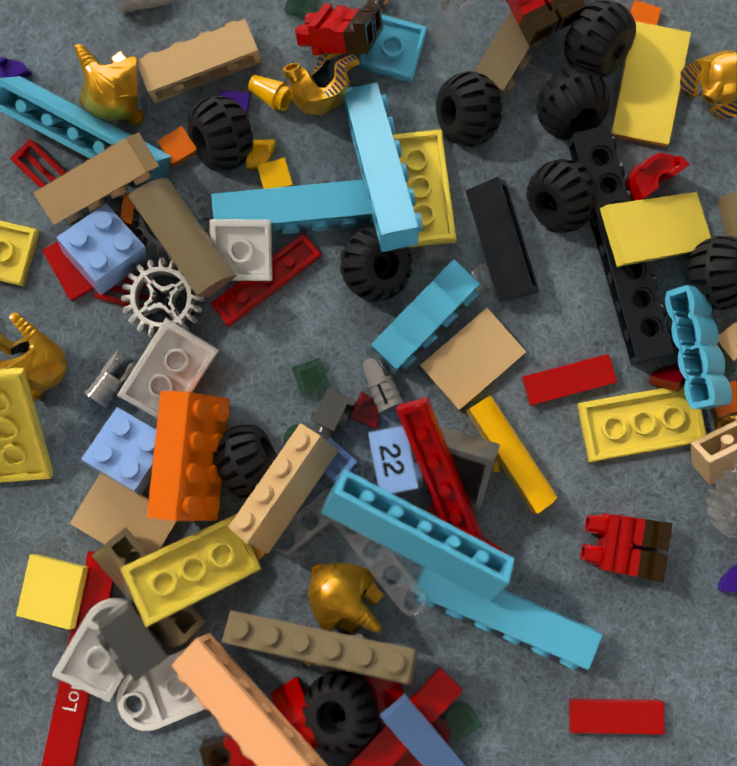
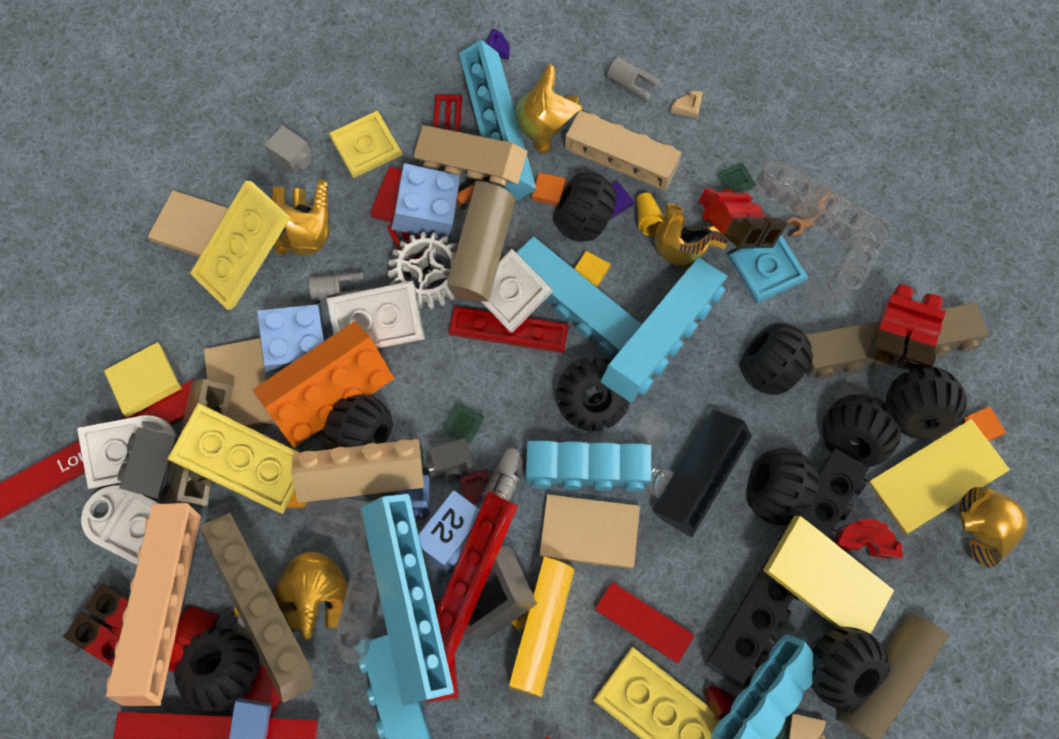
camera: 50 degrees right, 15 degrees down
(260, 153) = (598, 246): yellow tile -> none
(428, 176) = (686, 379): light yellow tile -> none

